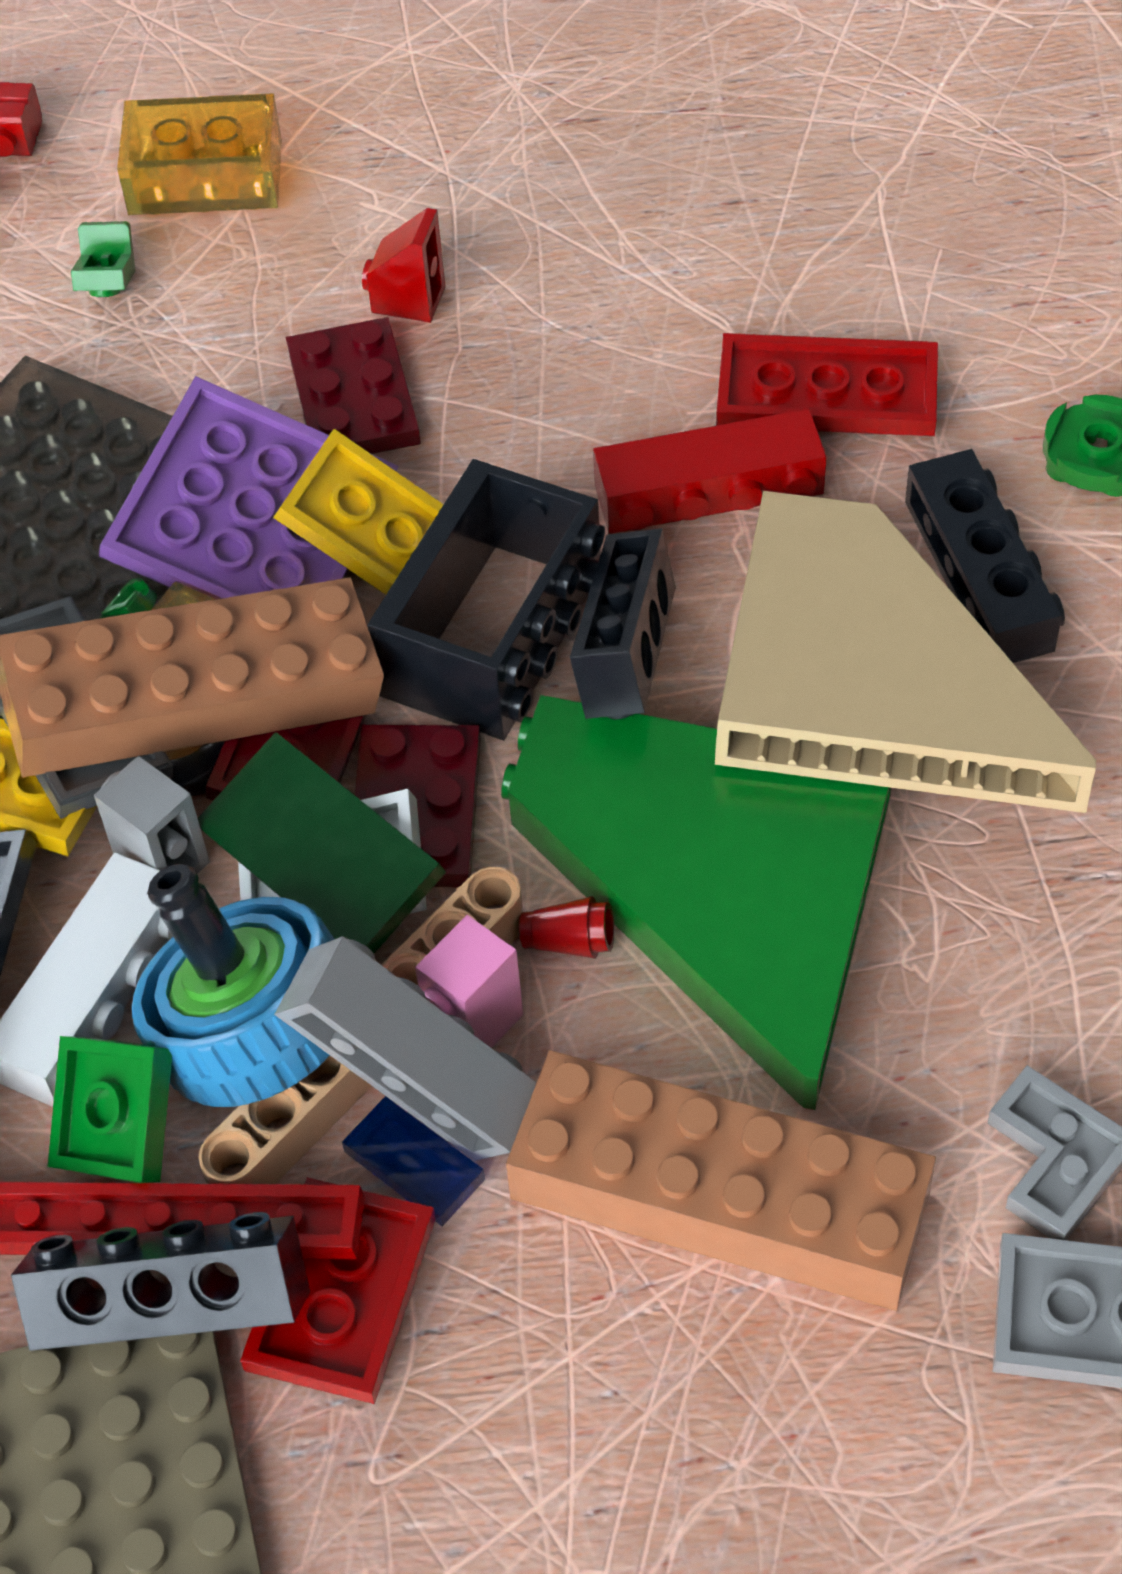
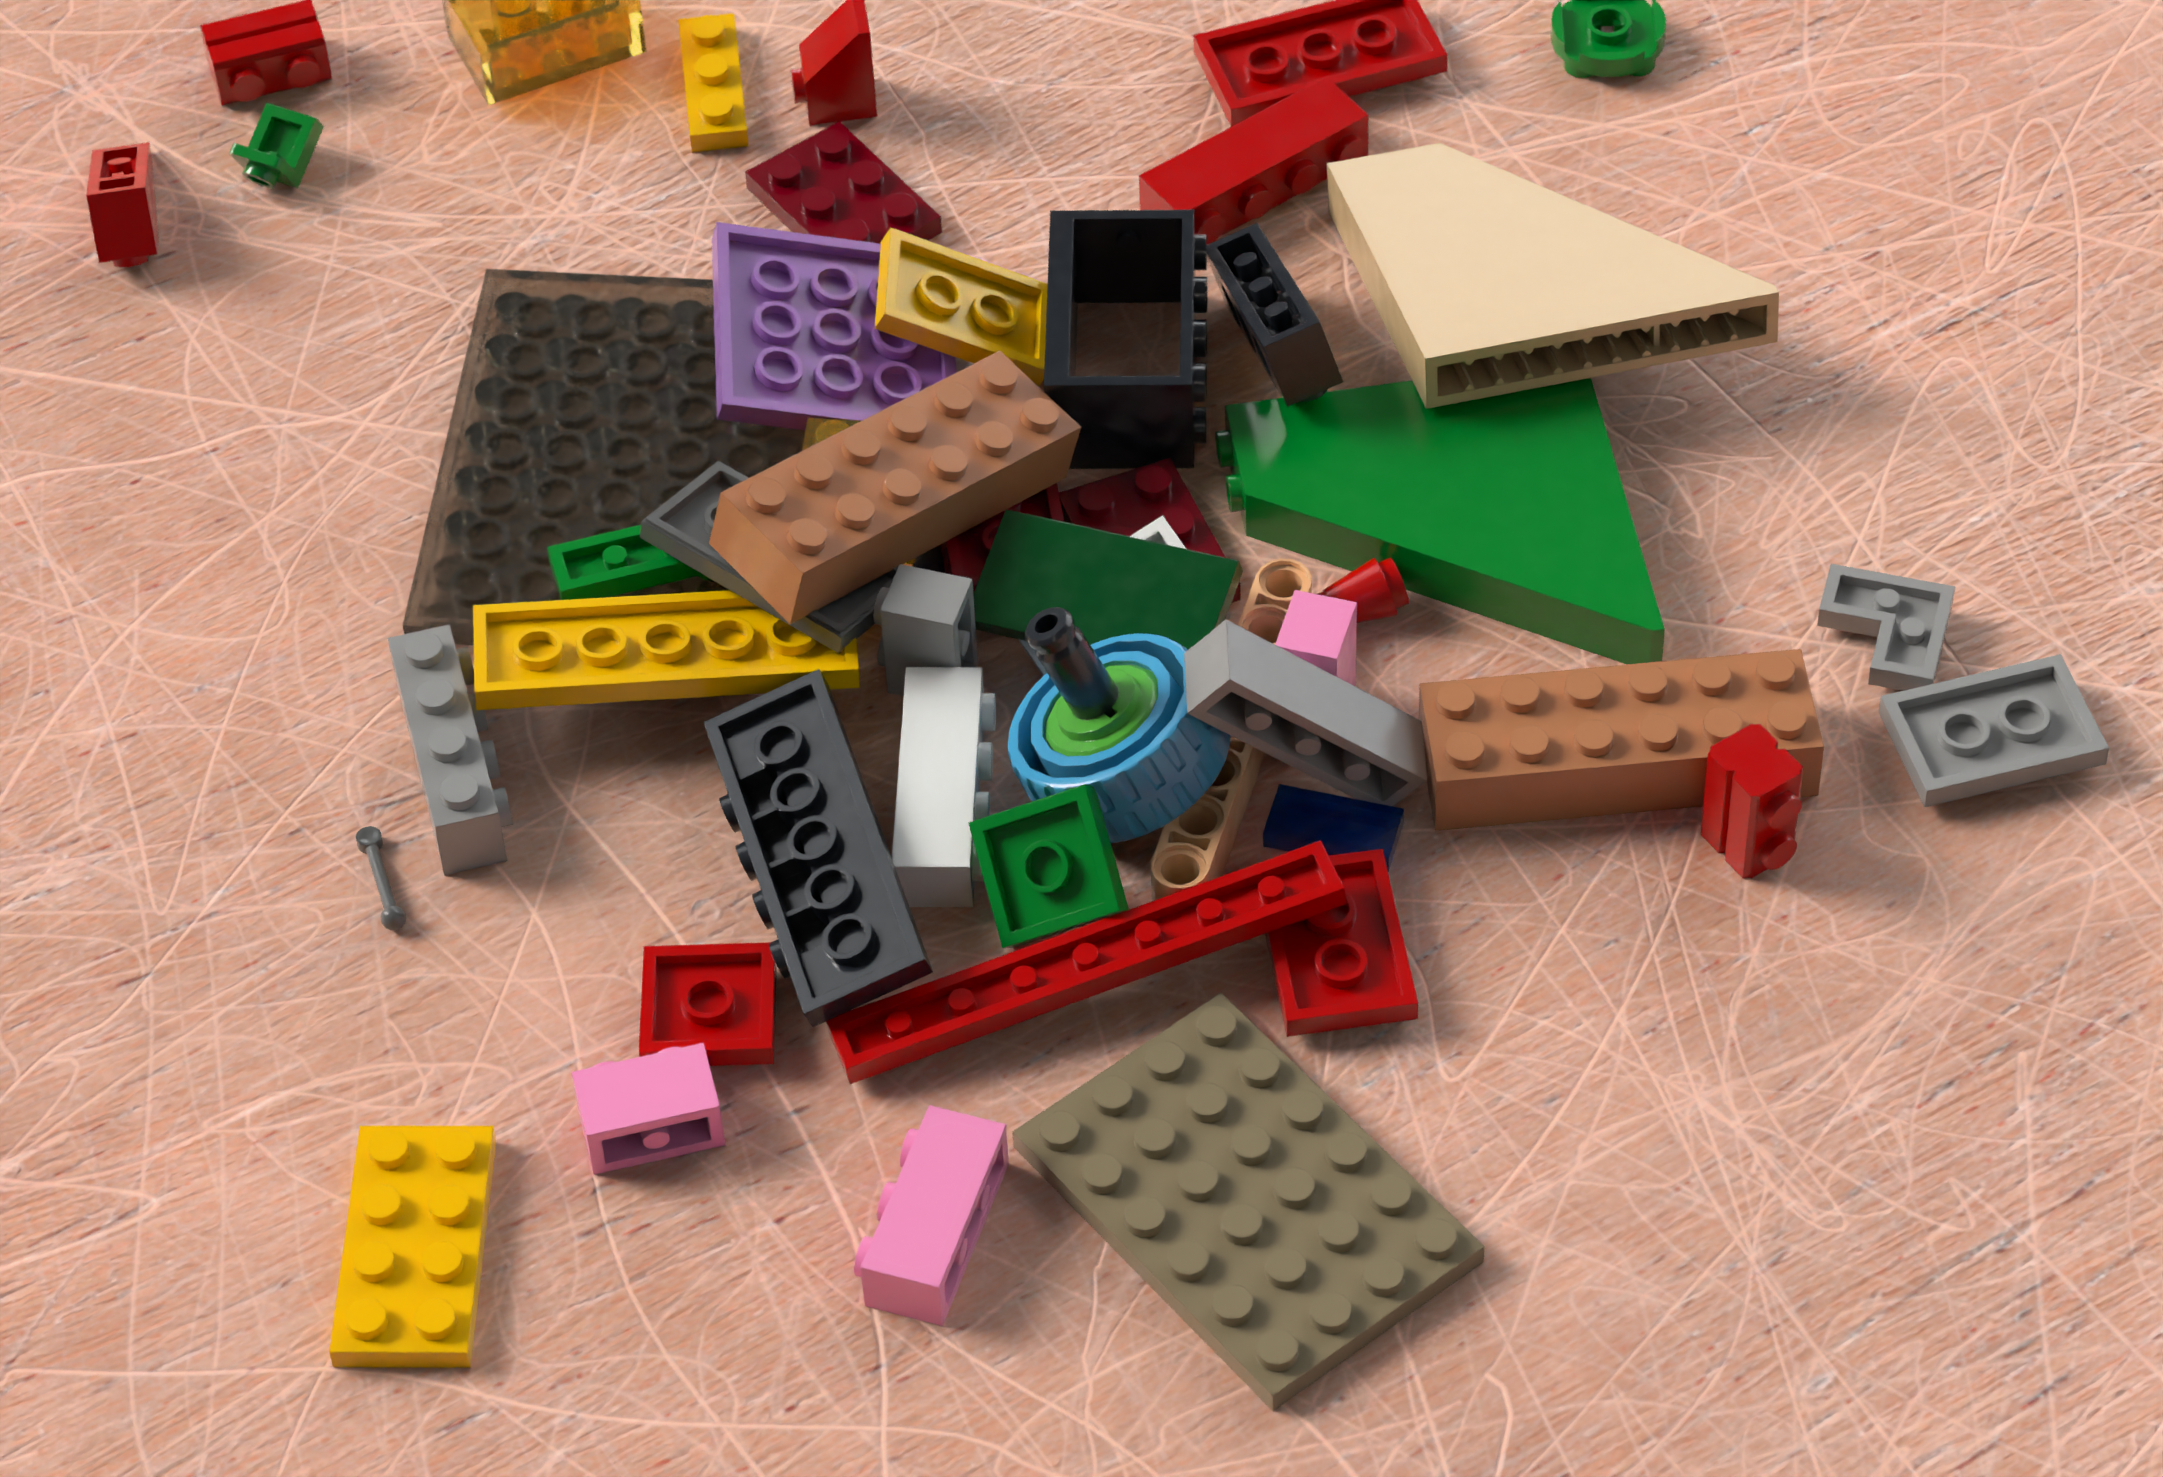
camera: 25 degrees left, 5 degrees down
(66, 1311) = (1286, 949): brick -> none
(105, 258) = (501, 153): bracket -> none
(131, 599) = (769, 449): green tile -> none
(313, 251) = (713, 82): none -> yellow plate
(803, 1308) = (1752, 801): none -> red brick
(983, 555) = (1534, 139): black brick -> none

